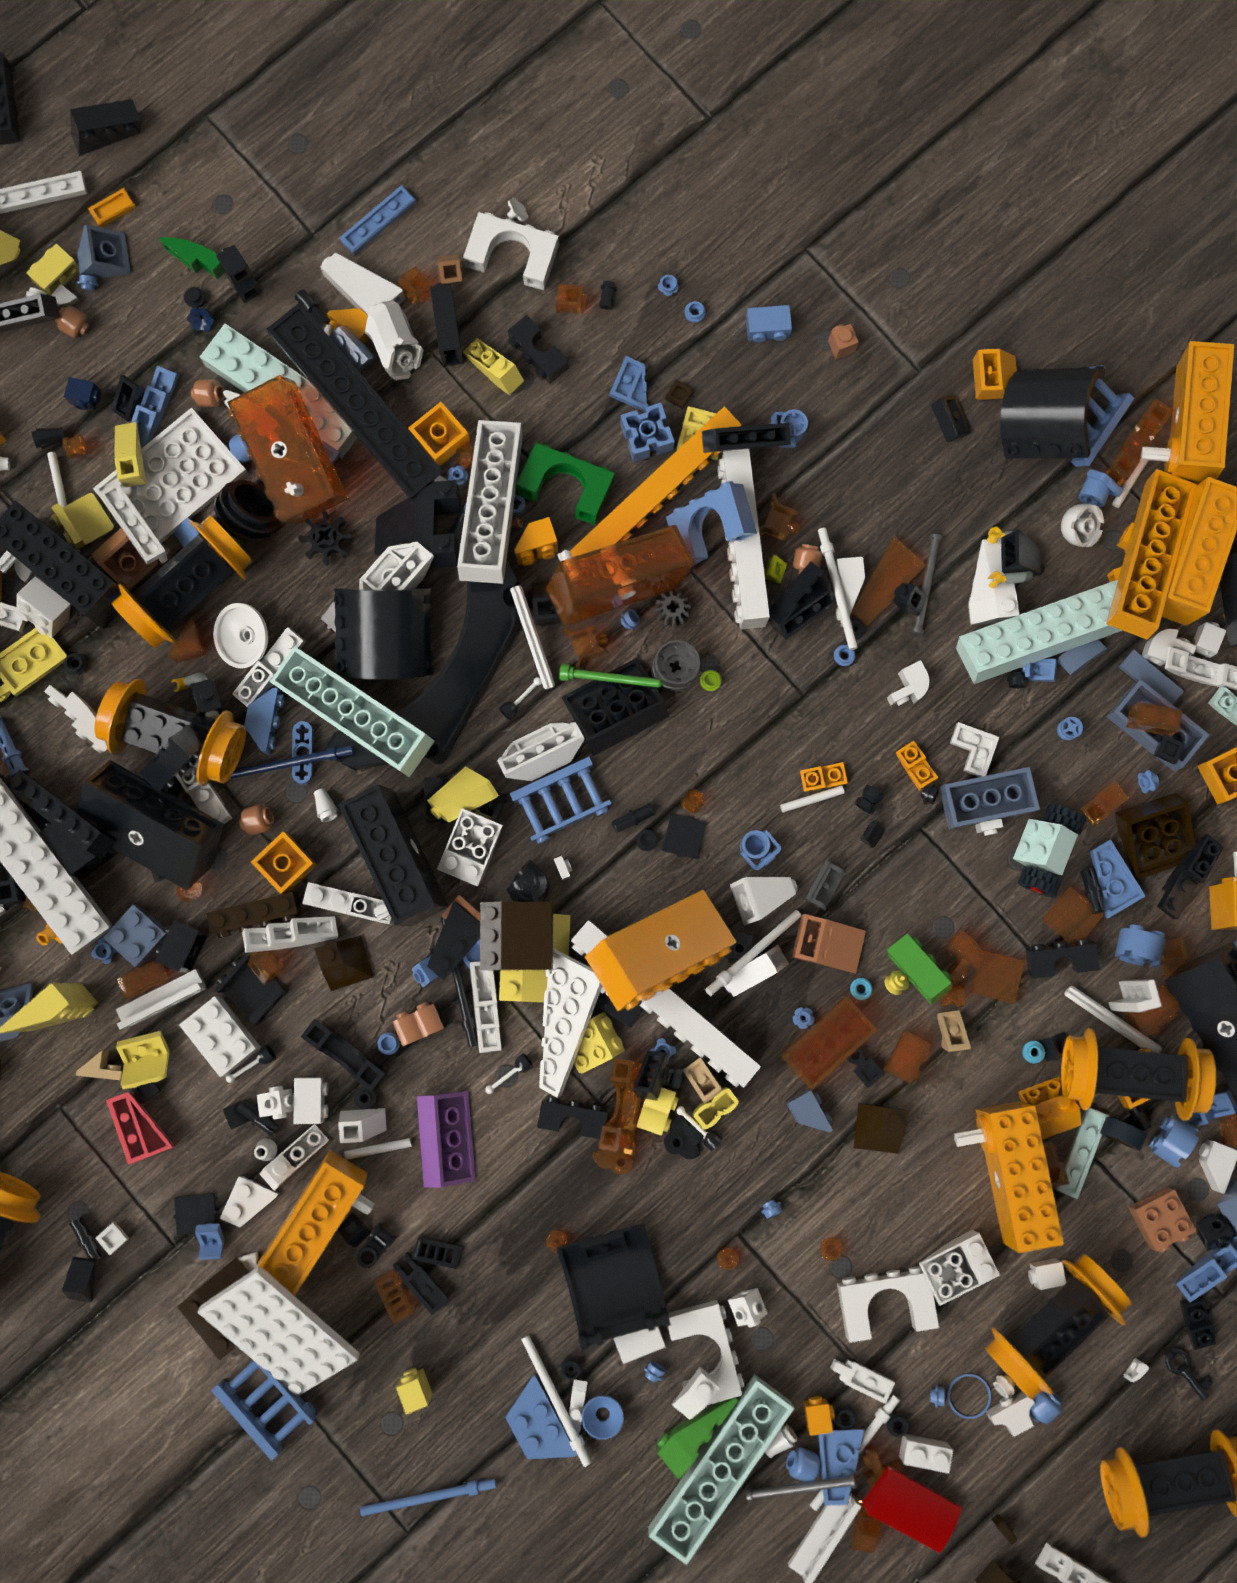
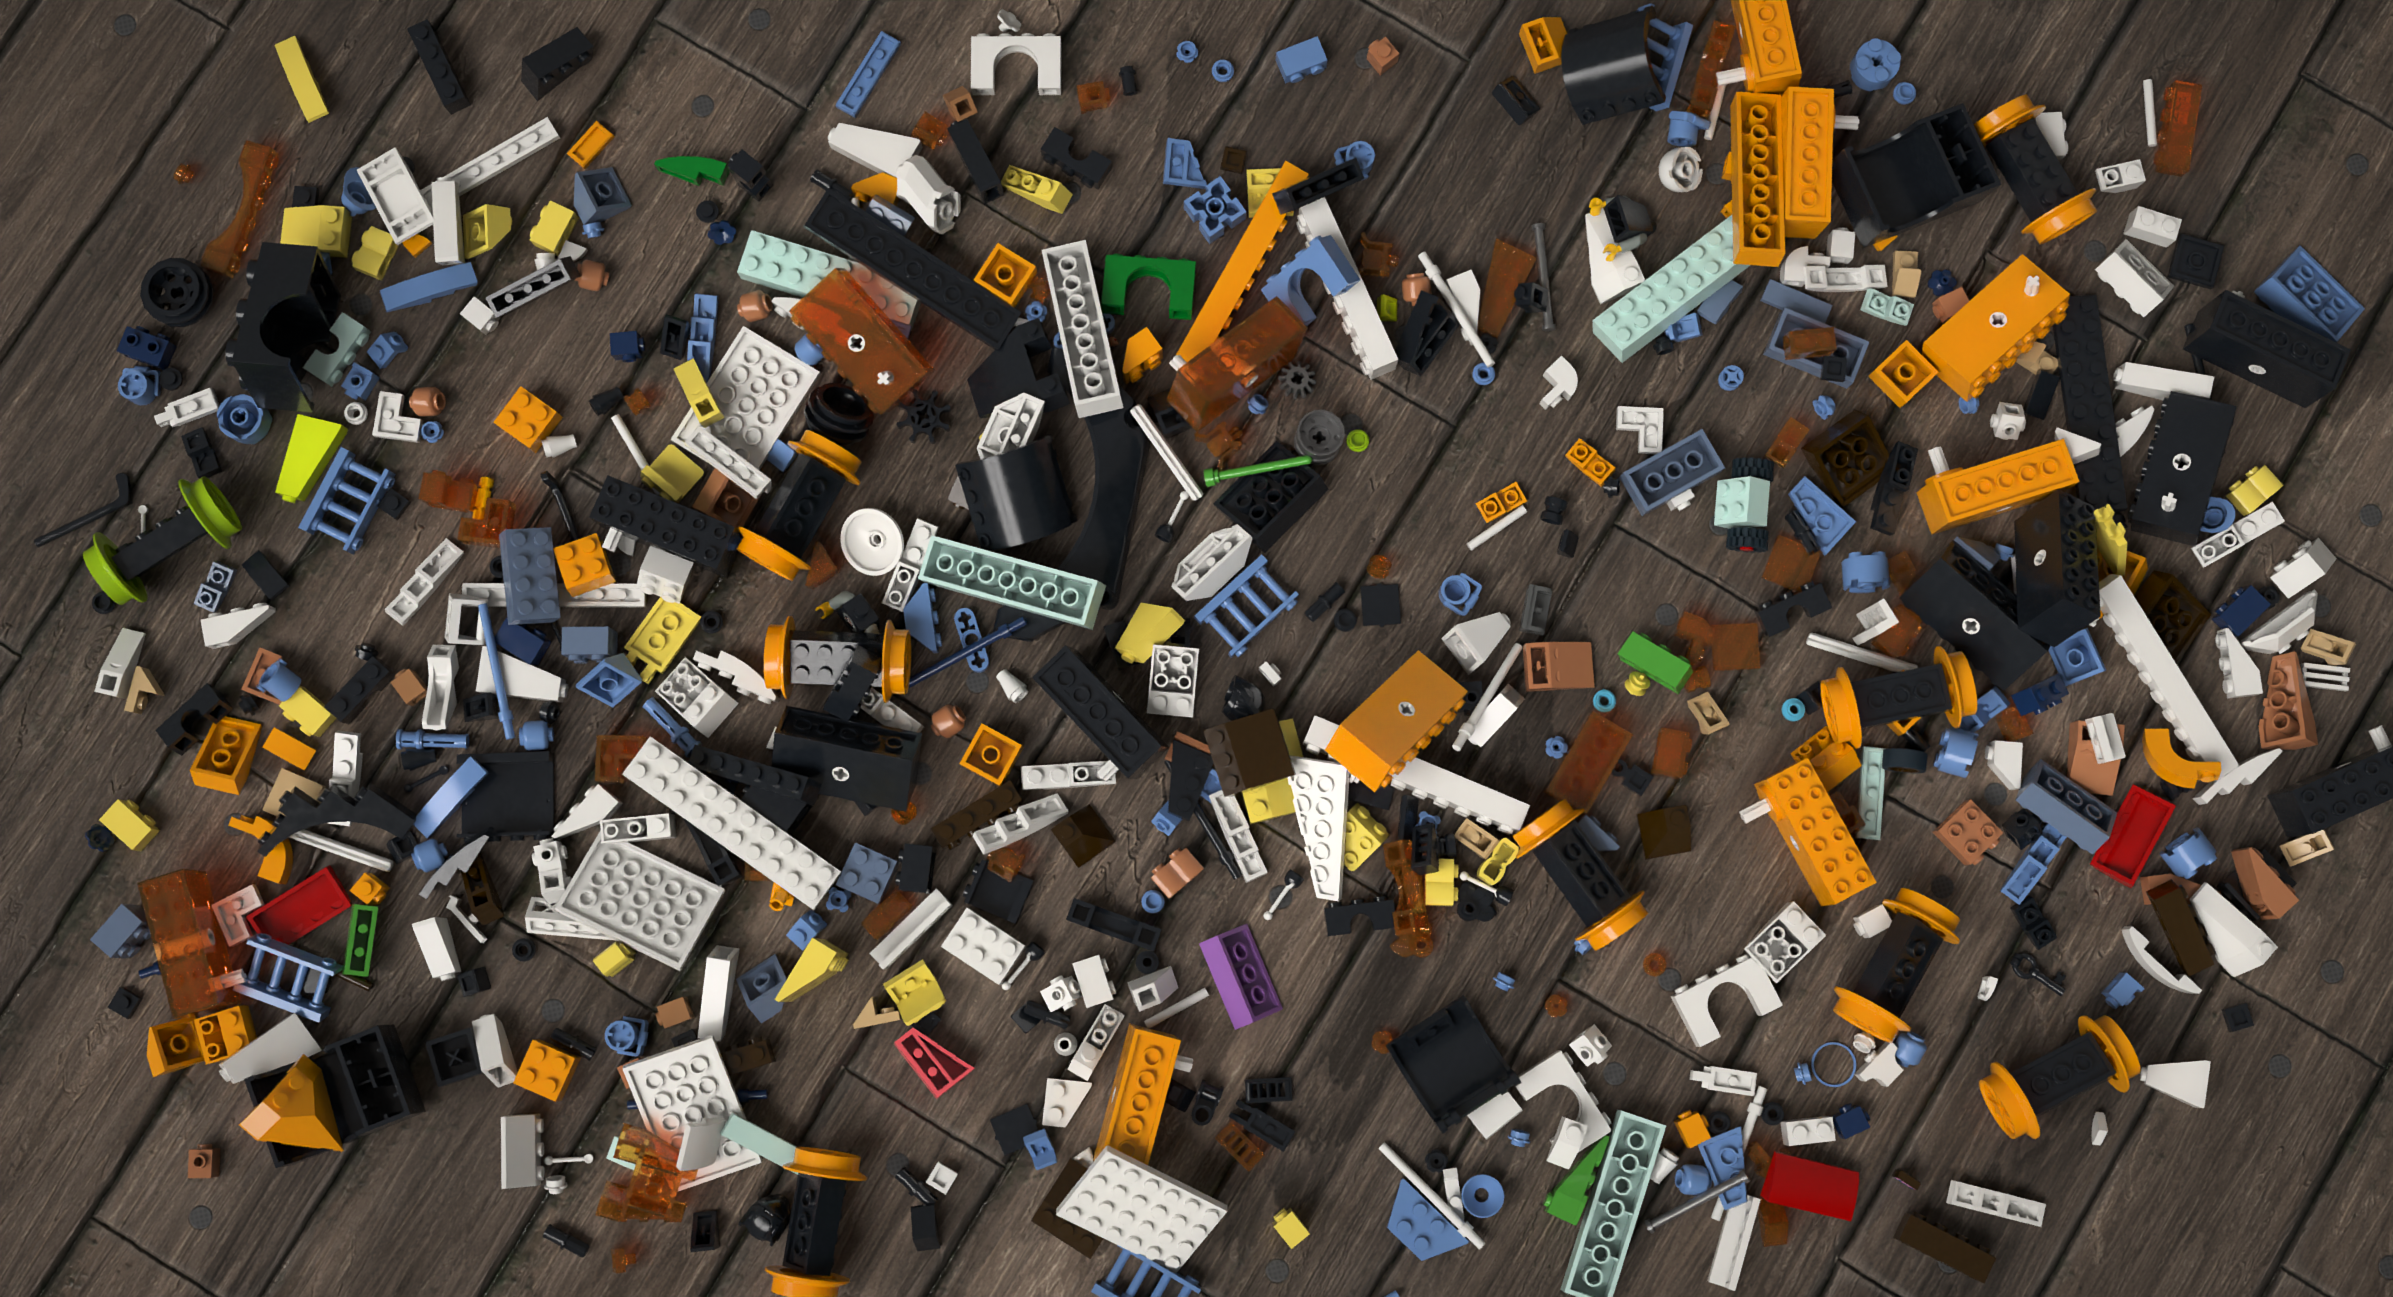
camera: 15 degrees left, 0 degrees up
(38, 728) = (696, 697): none -> white slope
(66, 968) = (806, 928): none -> medium blue bracket
(646, 1040) = (1407, 817): none -> black slope
(687, 1220) = (1504, 981): none -> medium blue plate
(788, 1147) = (1581, 874): none -> black brick
(969, 1456) = (1850, 1120): none -> dark blue brick
(1201, 1538) = (2099, 1128): none -> white tile

